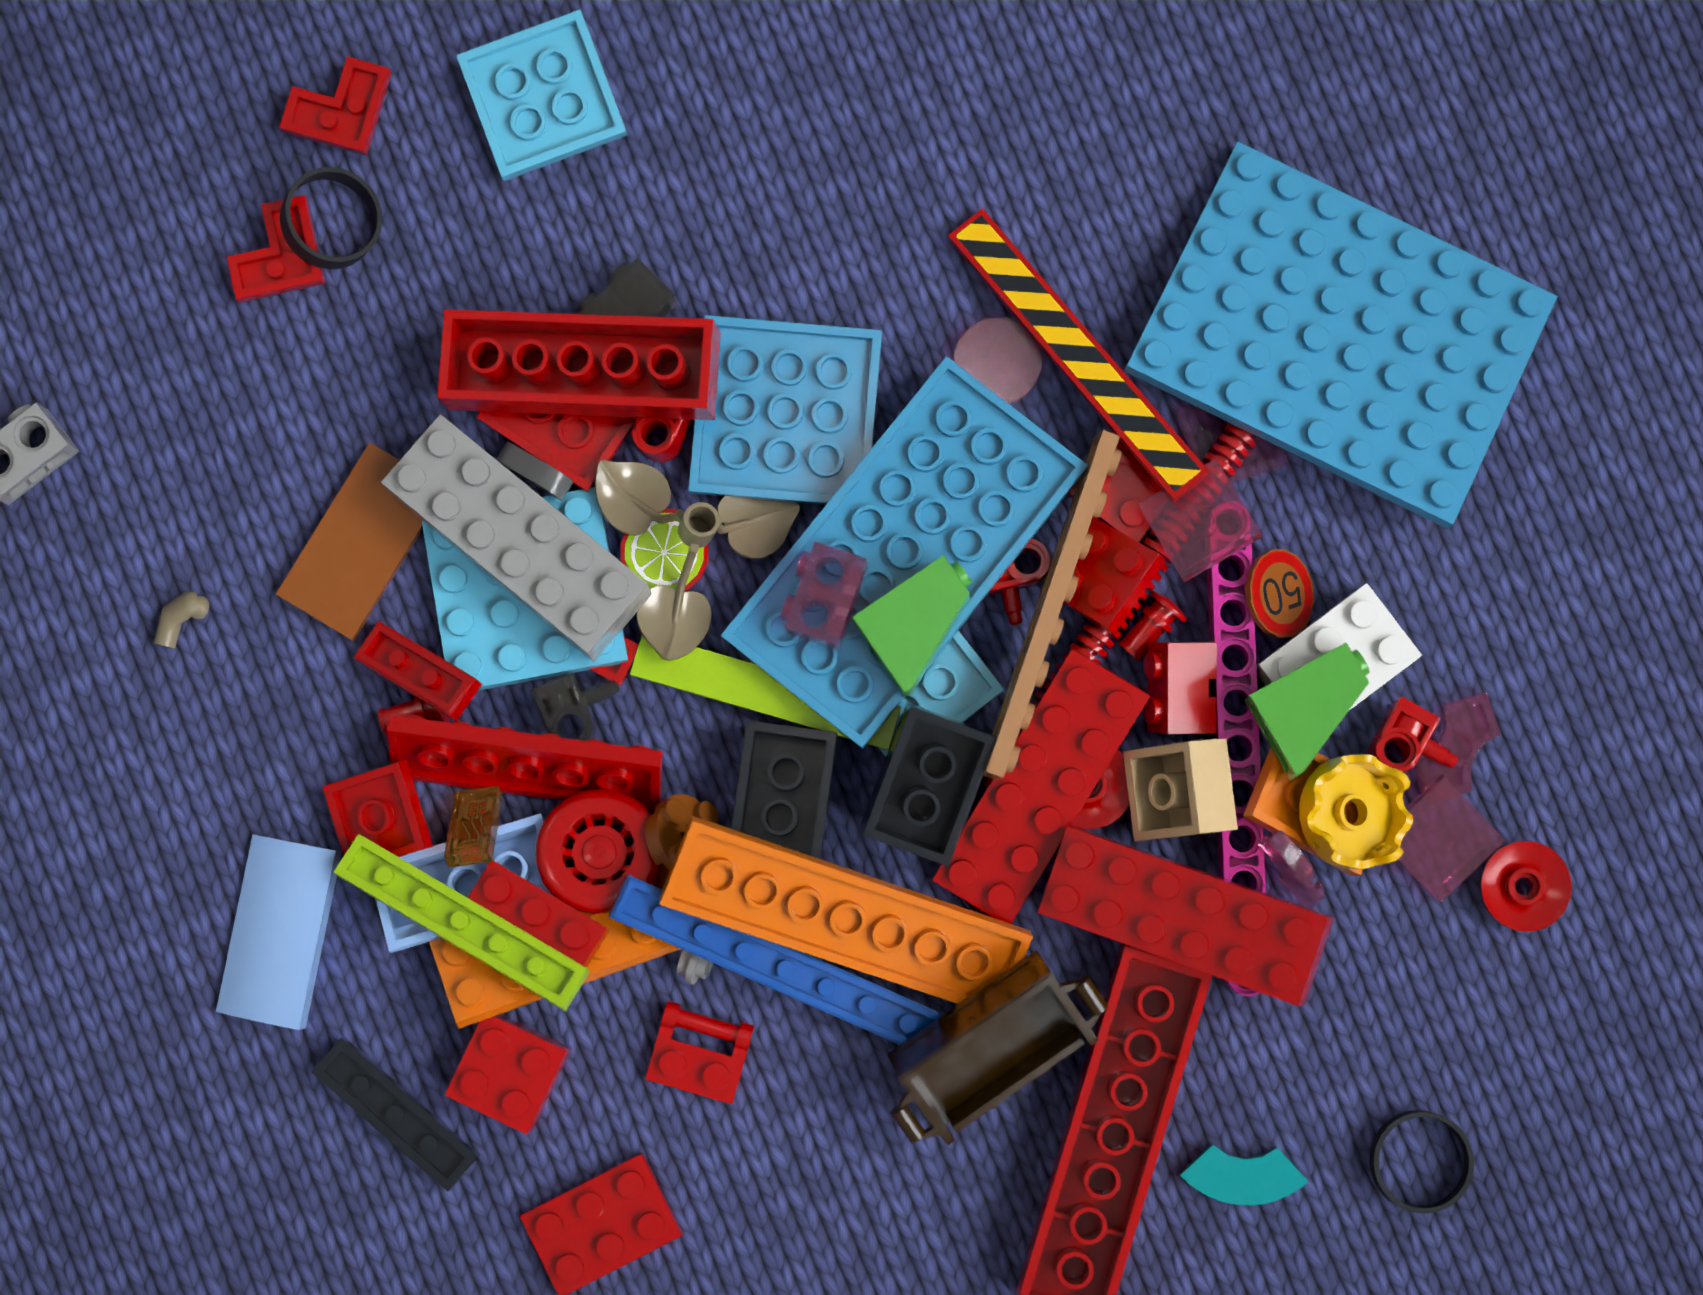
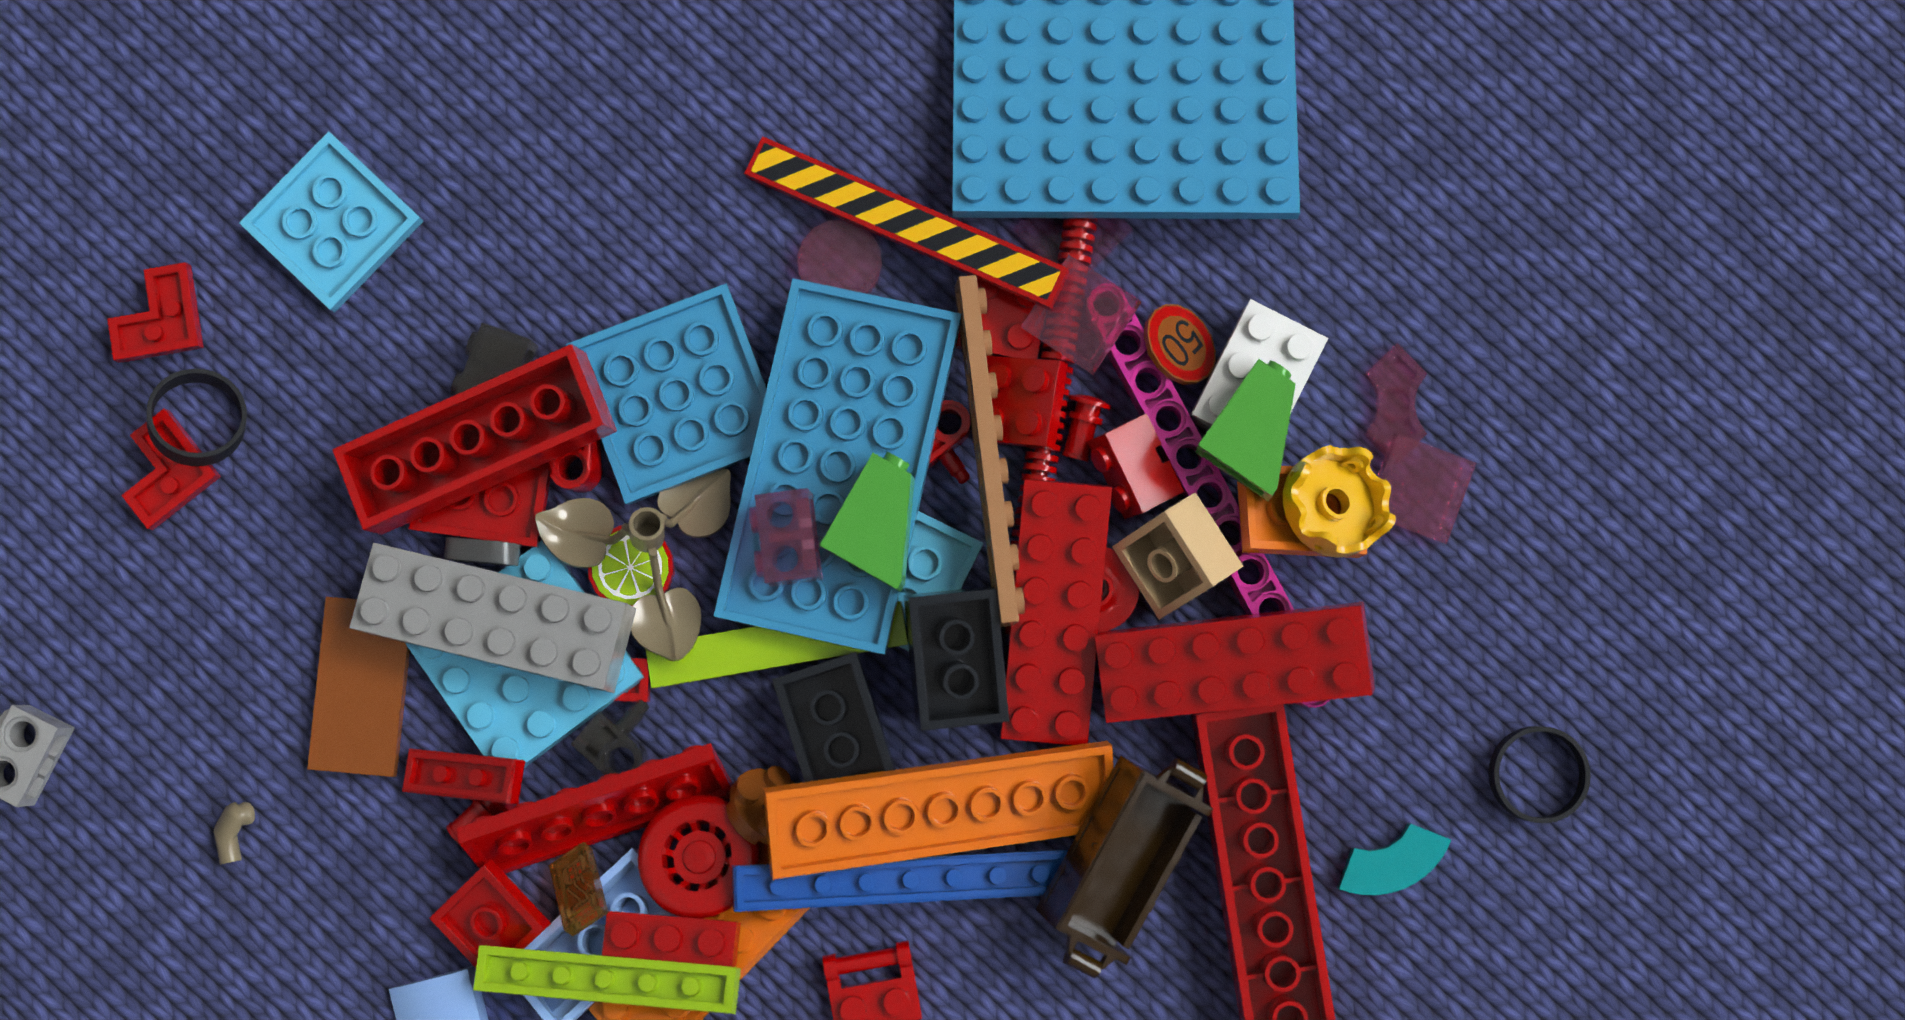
camera: 25 degrees left, 0 degrees up
(693, 967) = (830, 917): light grey plate -> none
(1293, 868) = (1307, 576): clear pink tile -> none
(1410, 729) = (1350, 407): red piece -> none
(1548, 882) = (1533, 488): red dish -> none

